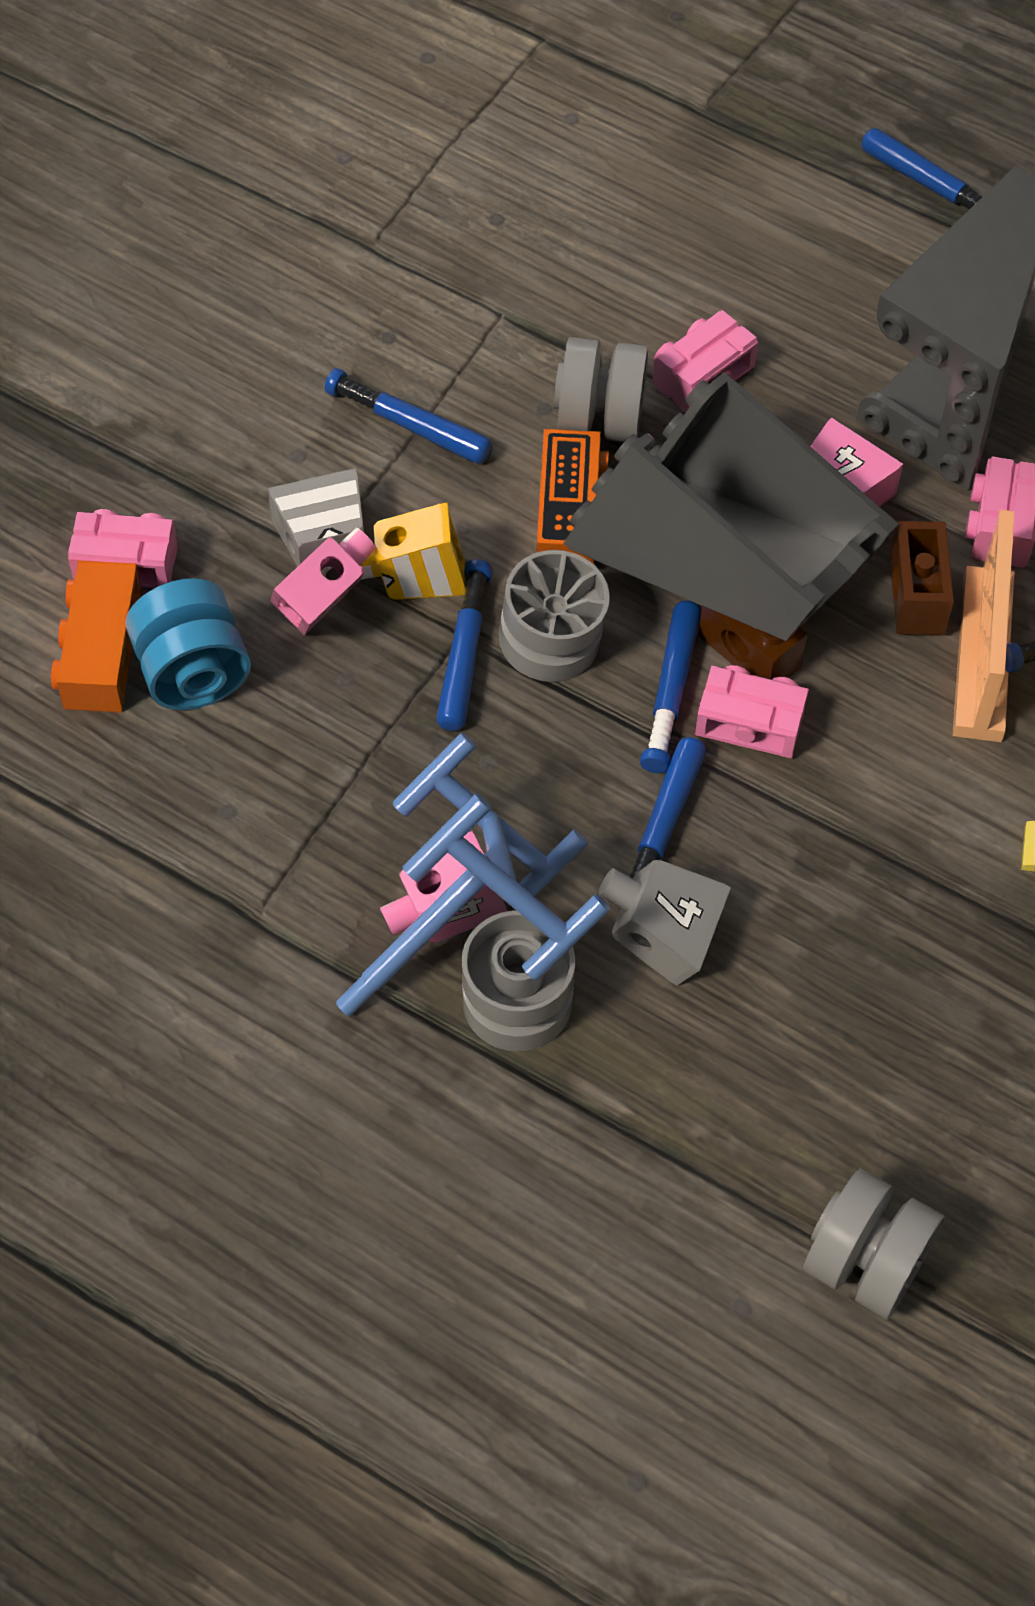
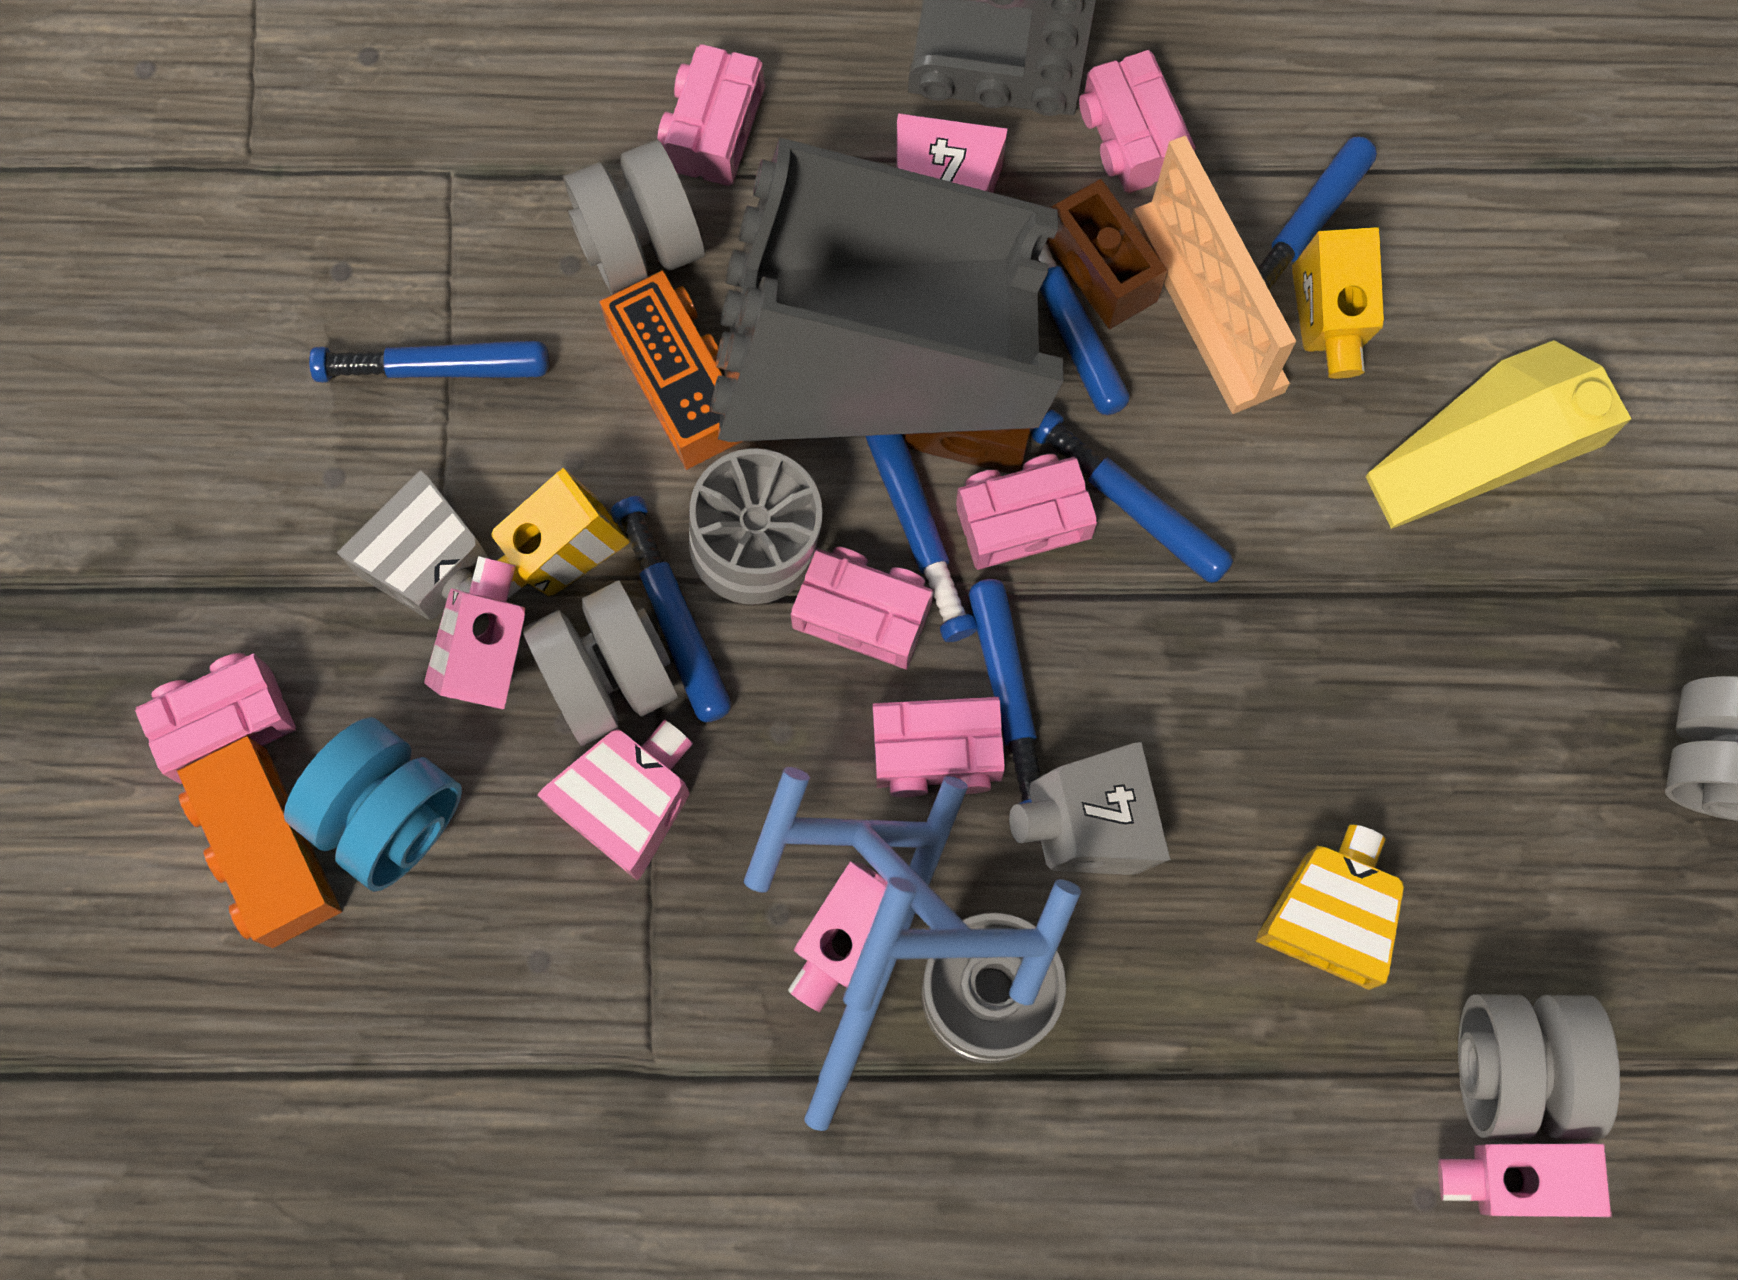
camera: 30 degrees left, 15 degrees up
(353, 735) = (623, 794): none -> bright pink torso
(406, 641) = (616, 655): none -> light grey wheel
(596, 709) = (862, 606): none -> bright pink brick
(601, 814) = (936, 739): none -> bright pink brick
(801, 1077) = (1339, 911): none -> yellow torso
(822, 1319) = (1554, 1177): none -> bright pink torso
(843, 757) = (1147, 509): none -> blue piece
(871, 623) = (1082, 340): none -> blue piece

